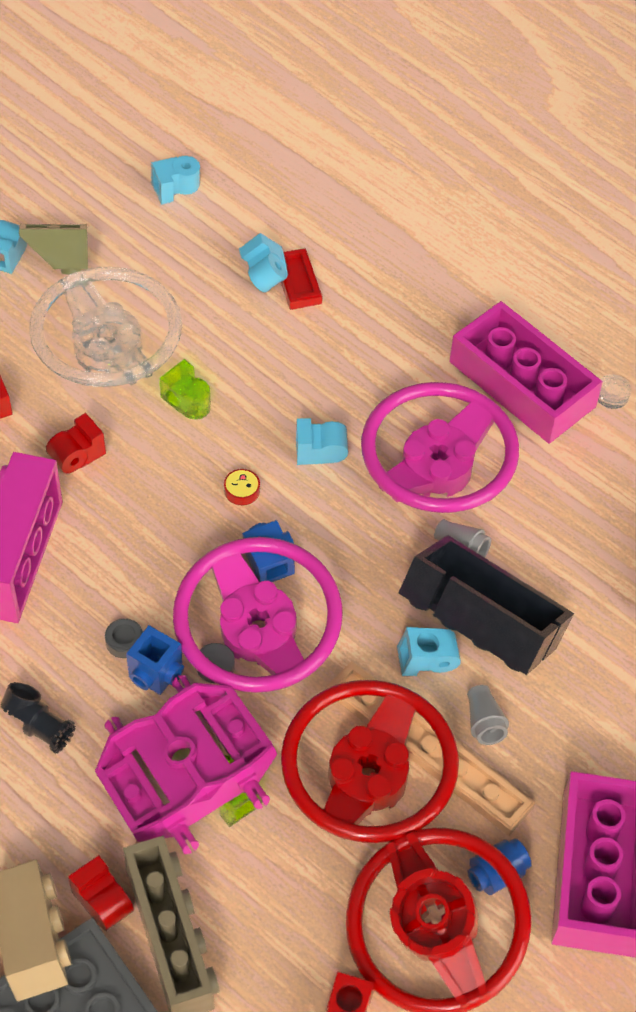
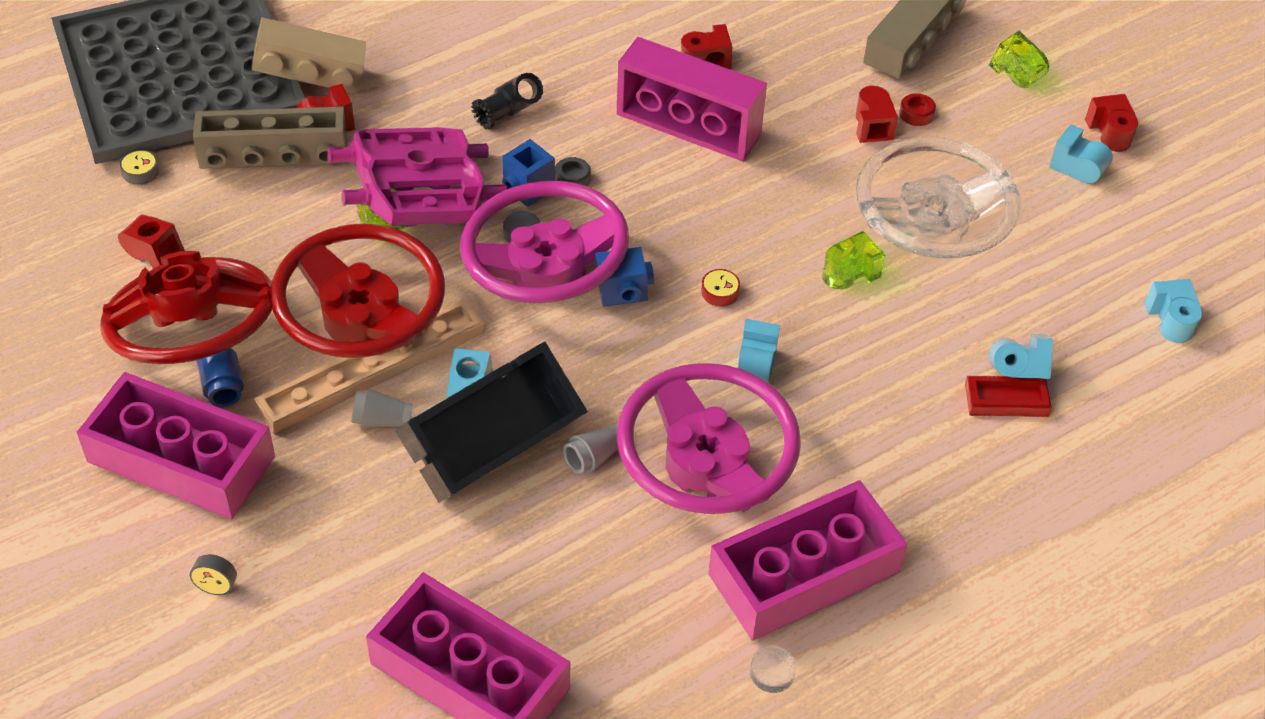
camera: 105 degrees right, 5 degrees down
(58, 244) = (1066, 183): slope -> none
(78, 445) = (798, 163): red leg -> none

